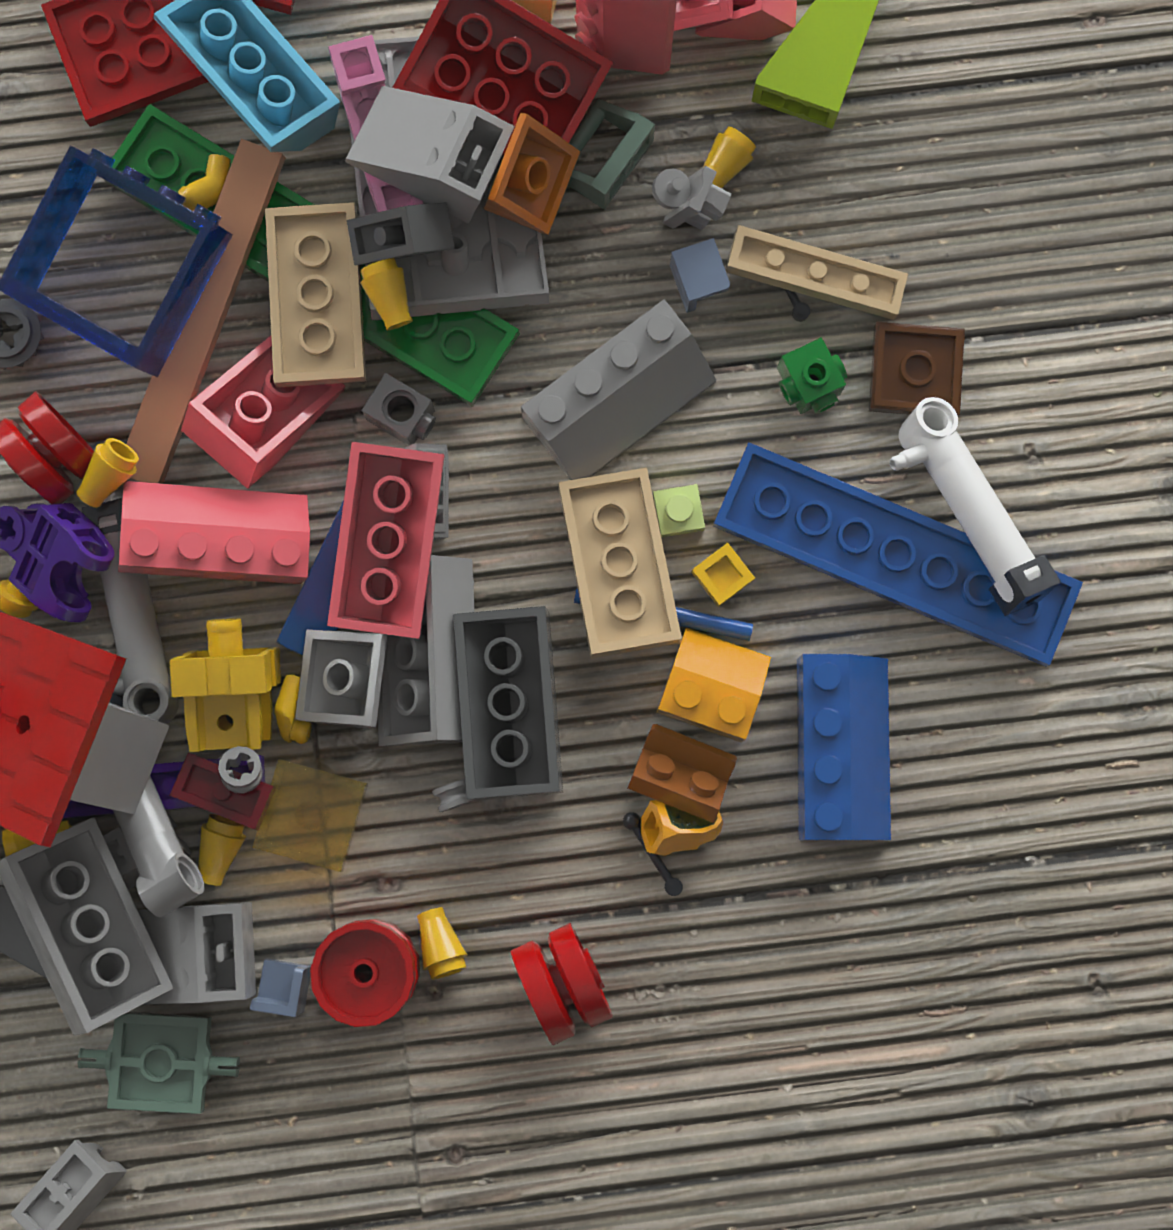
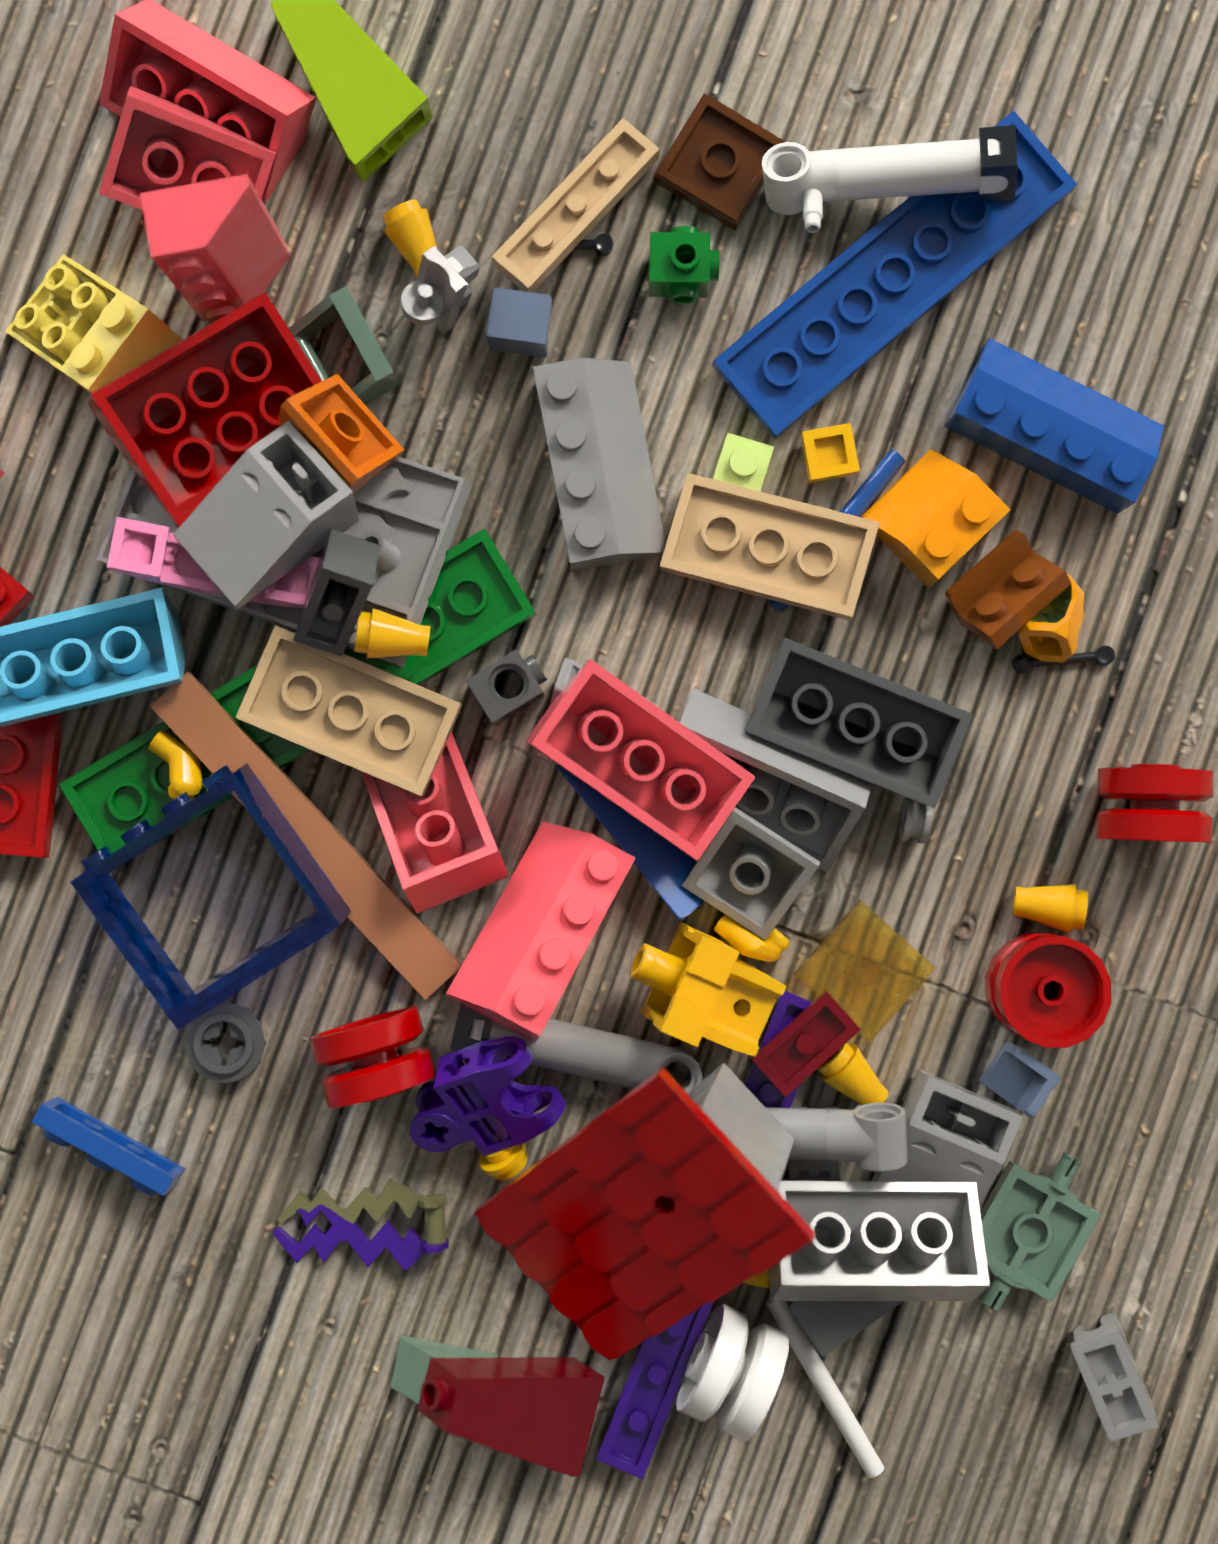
camera: 60 degrees left, 5 degrees up
(108, 469) = (430, 1003): yellow cone -> none
(233, 758) = (781, 1017): light grey bush -> none

